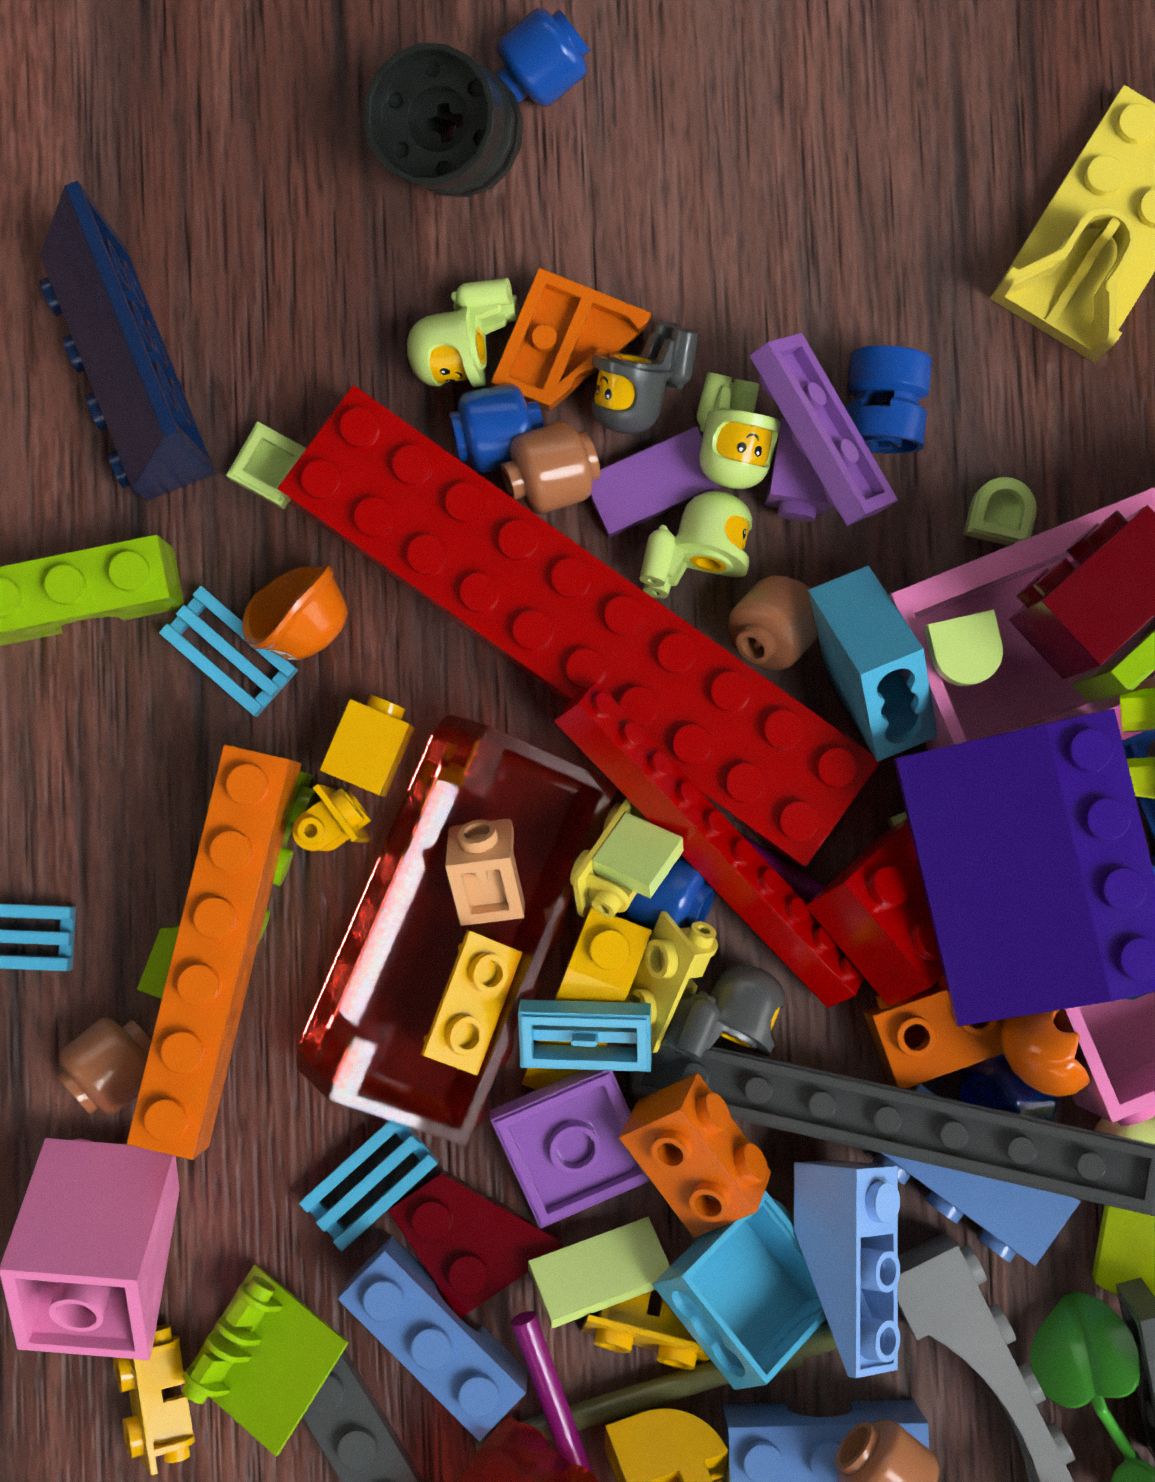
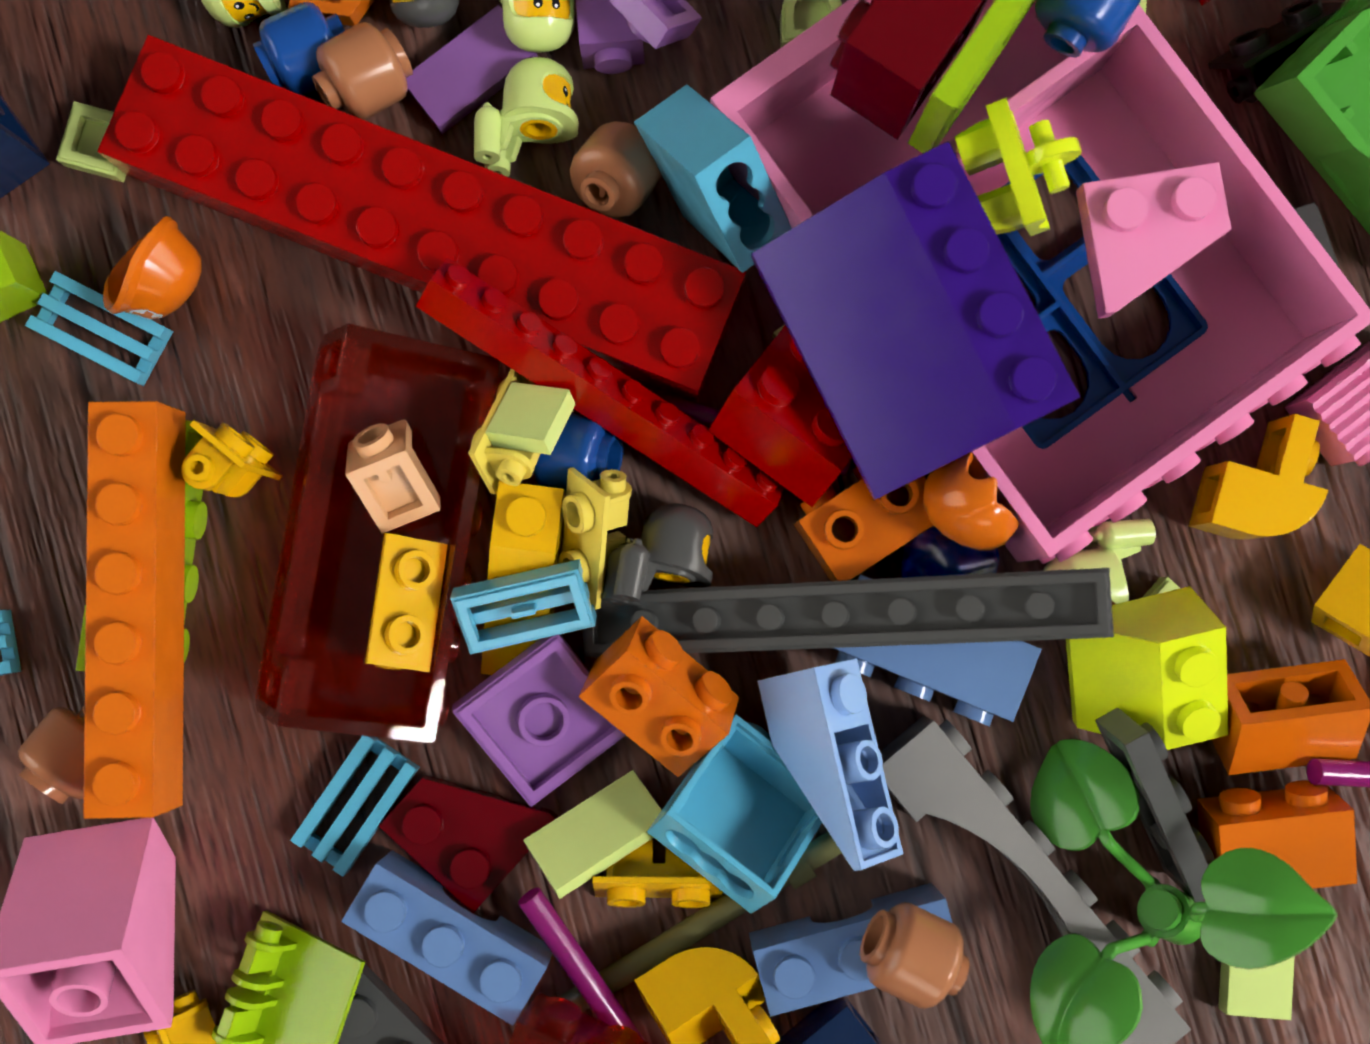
camera: 15 degrees left, 0 degrees up
(369, 745) = (252, 383): yellow brick -> none
(965, 648) = (793, 129): yellowish green tile -> none

